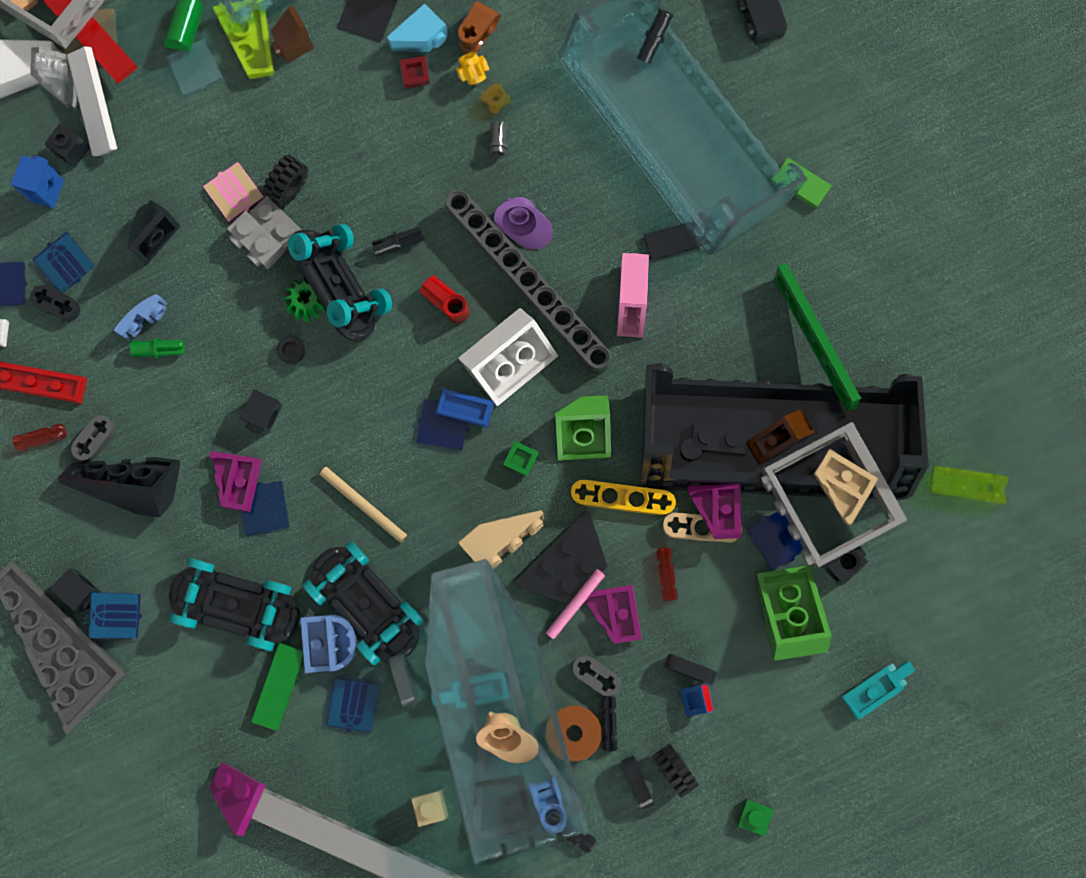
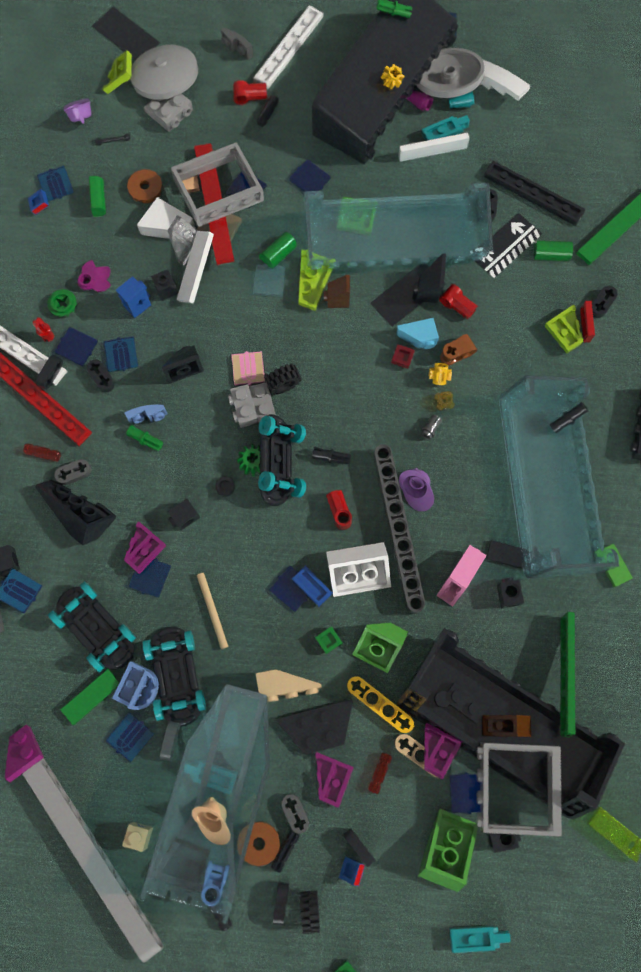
camera: 25 degrees right, 5 degrees down
(575, 604) = (309, 757): bright pink bar -> none
(700, 295) = (505, 600): none -> black brick
(844, 484) = (531, 787): tan wing -> none

